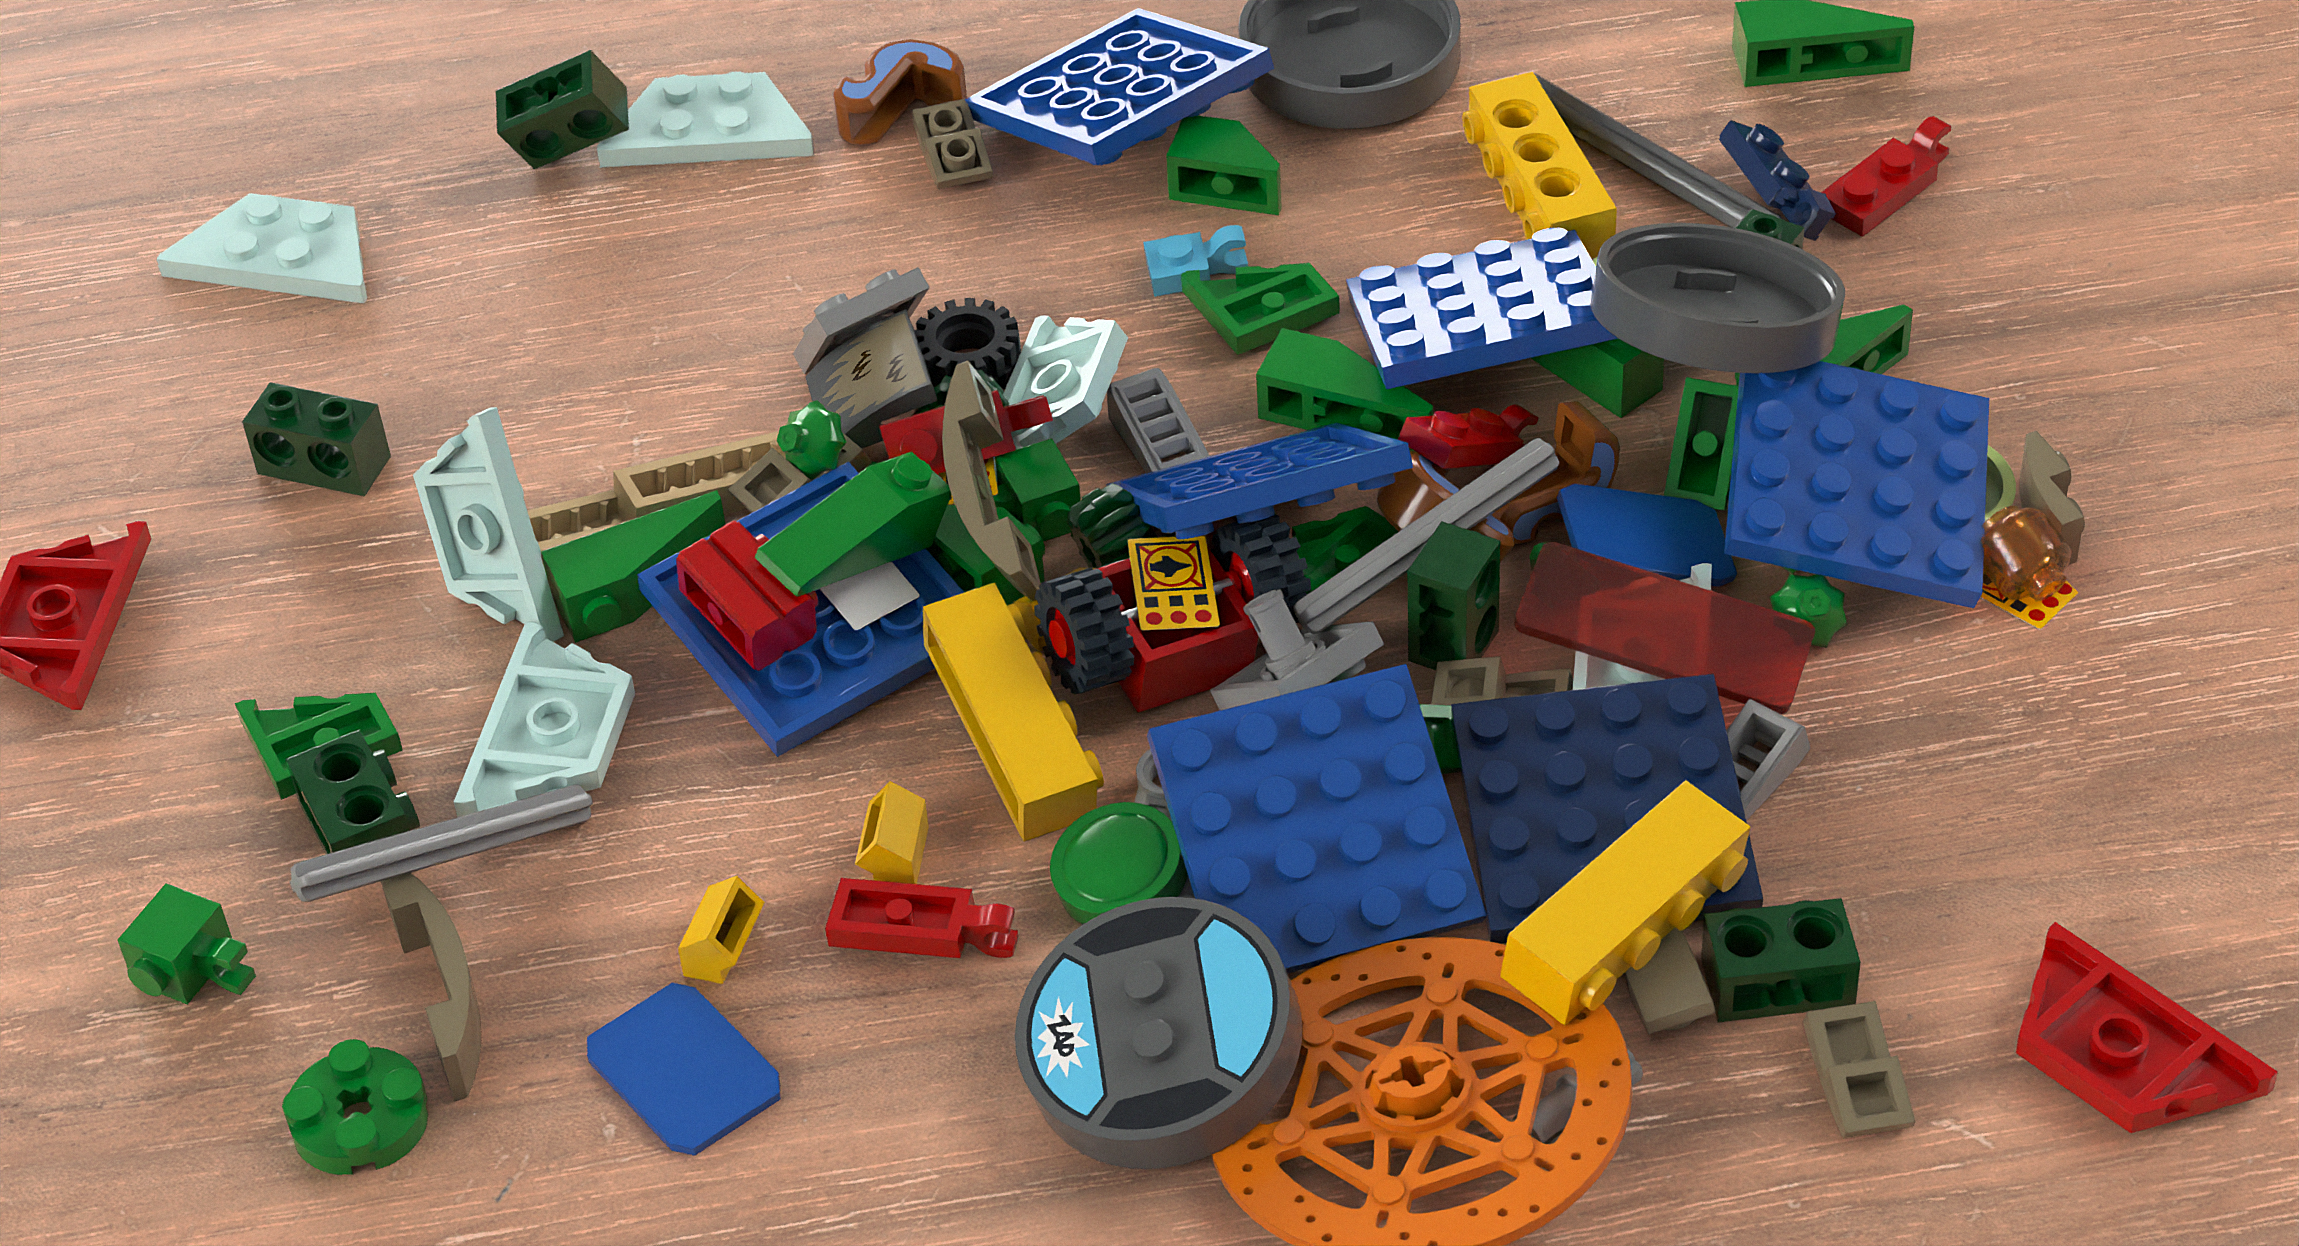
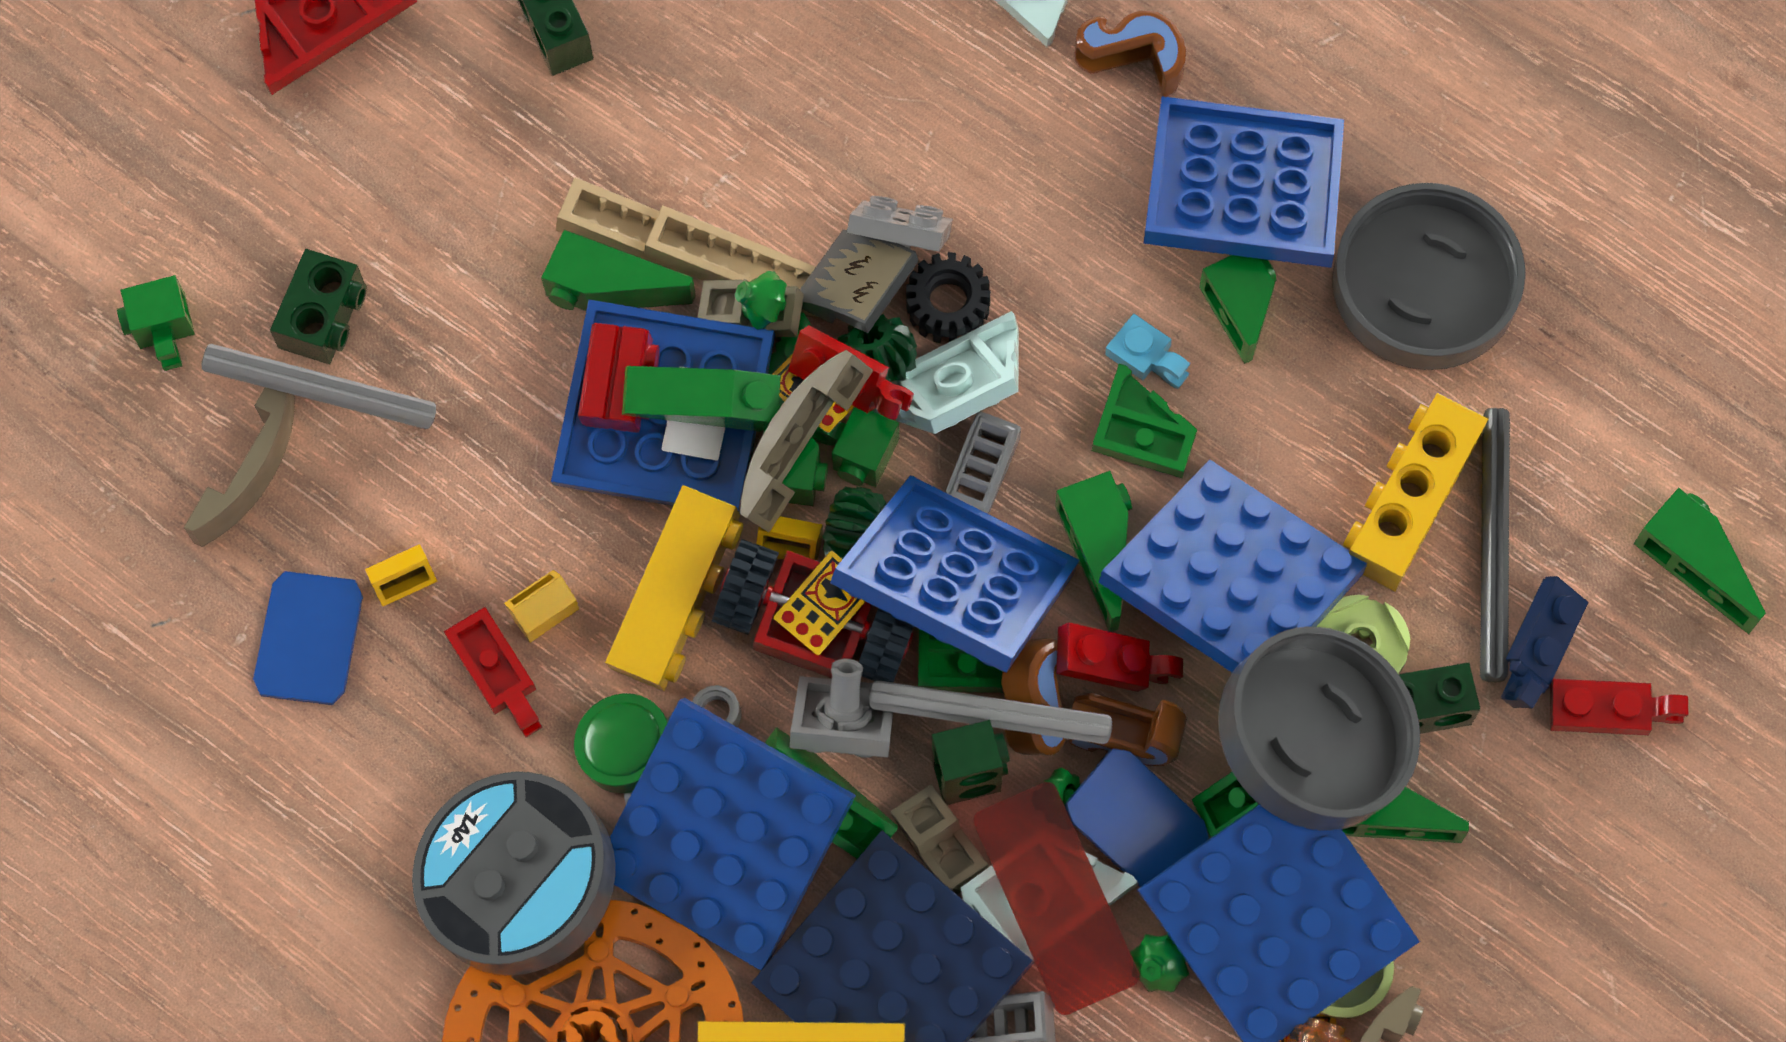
camera: 45 degrees right, 25 degrees up
(312, 722) = (354, 234): green wing -> none
(352, 1076) = (119, 488): green plate -> none
(484, 526) = (542, 186): light aqua wing -> none
(547, 725) = (463, 347): light aqua wing -> none
(951, 144) = (1121, 123): dark tan slope -> none

